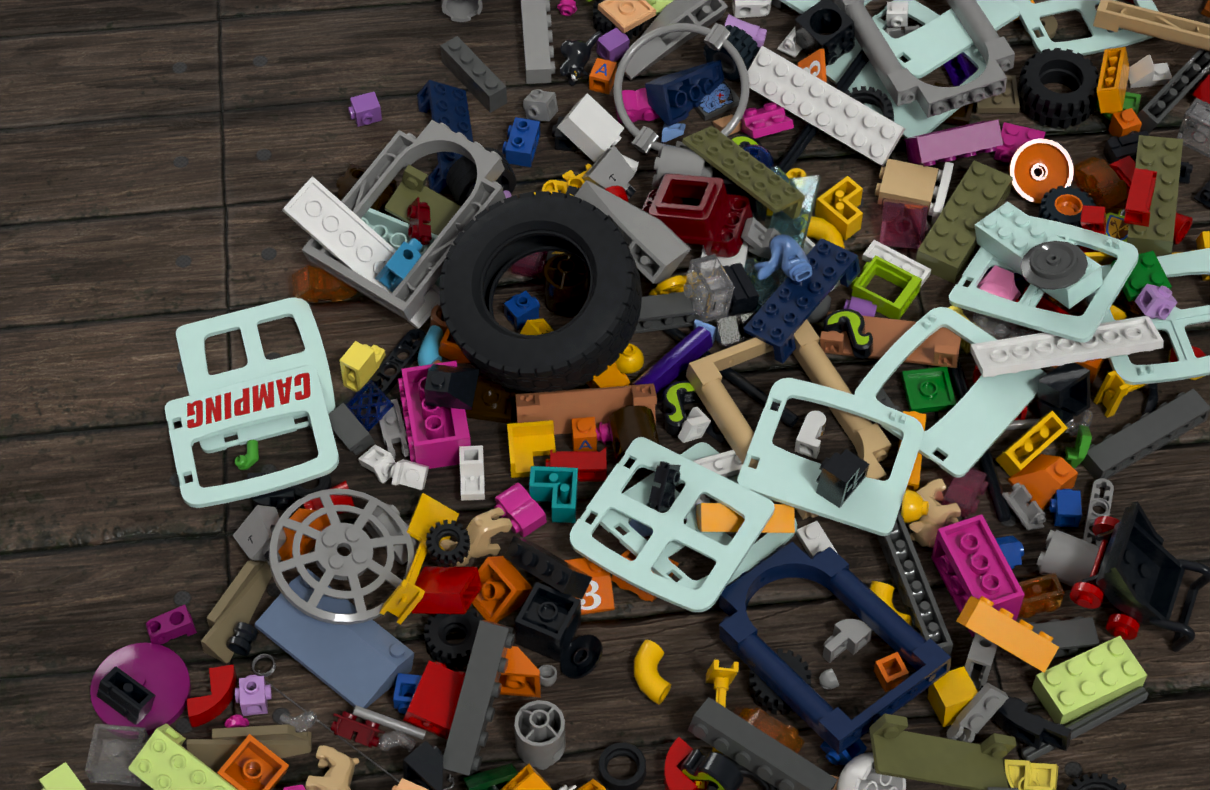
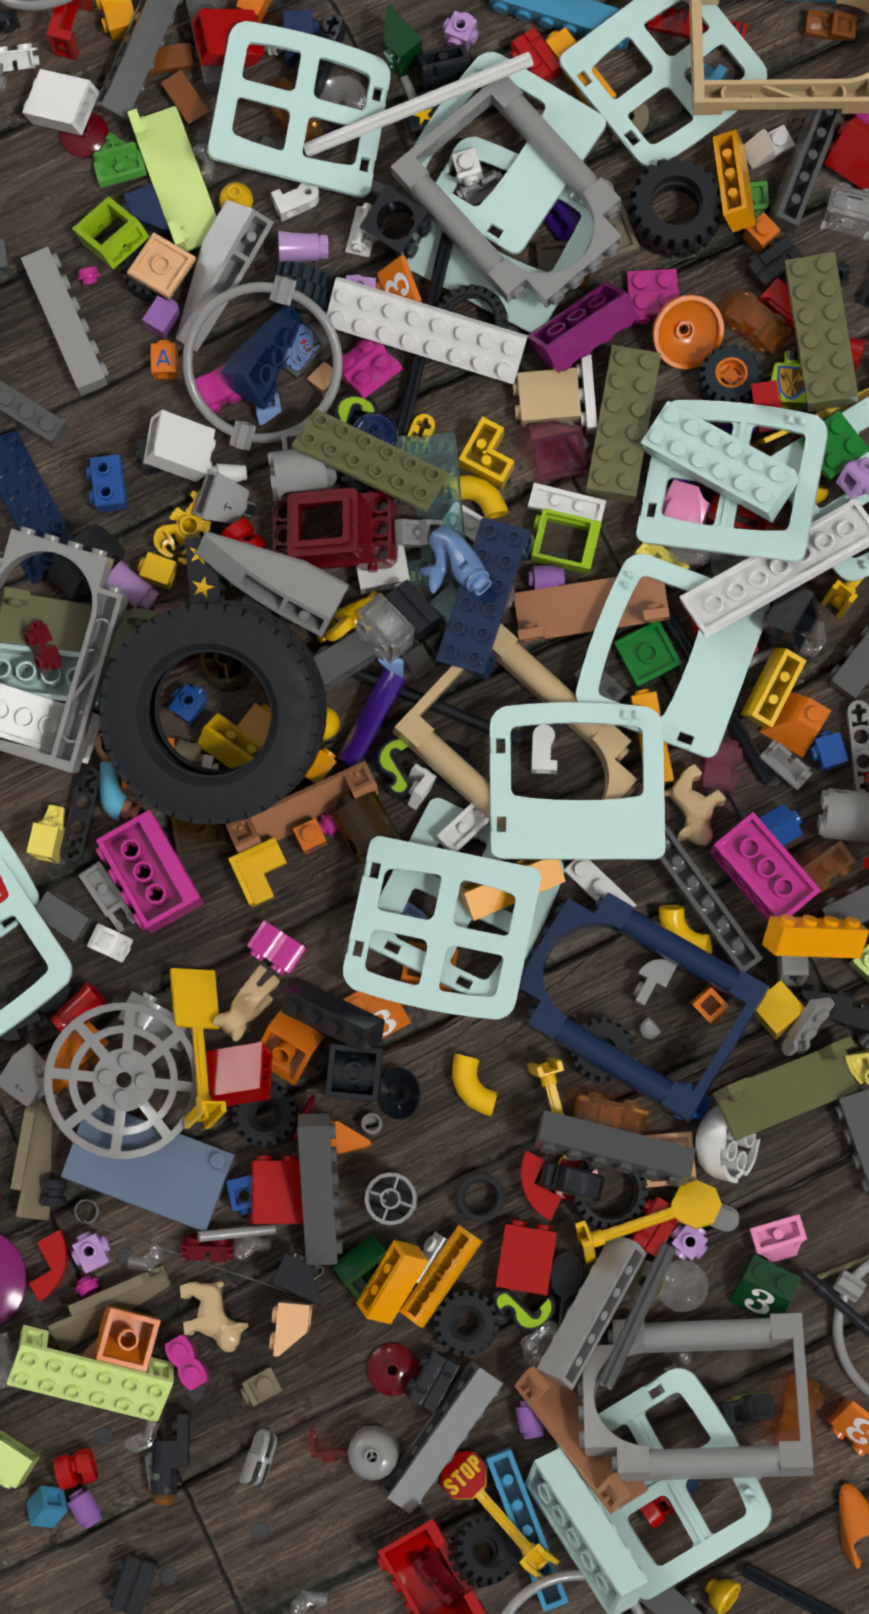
camera: 15 degrees left, 25 degrees up
(378, 415) = (89, 890): clear blue window -> none
(400, 264) = (43, 722): dark azure torso -> none
(409, 474) = (147, 946): white bracket -> none
(444, 530) = (234, 1039): black tyre -> none
(451, 386) = (157, 845): black slope -> none
(472, 473) = (213, 927): white brick -> none
(540, 105) = (110, 429): light grey brick -> none
(556, 486) = (307, 909): teal brick -> none
(577, 55) = (127, 347): black animal -> none
(590, 464) = (316, 875): red window -> none
(664, 497) = (421, 899): black hinge -> none
(841, 476) = (599, 815): black brick -> none
(854, 325) = (552, 613): black animal -> none
(913, 506) = (677, 812): yellow brick -> none
(1054, 265) = (746, 499): dark grey piece -> none
(1076, 455) = (824, 678): bright green slope -> none
(1140, 197) = (810, 354): red window -> none

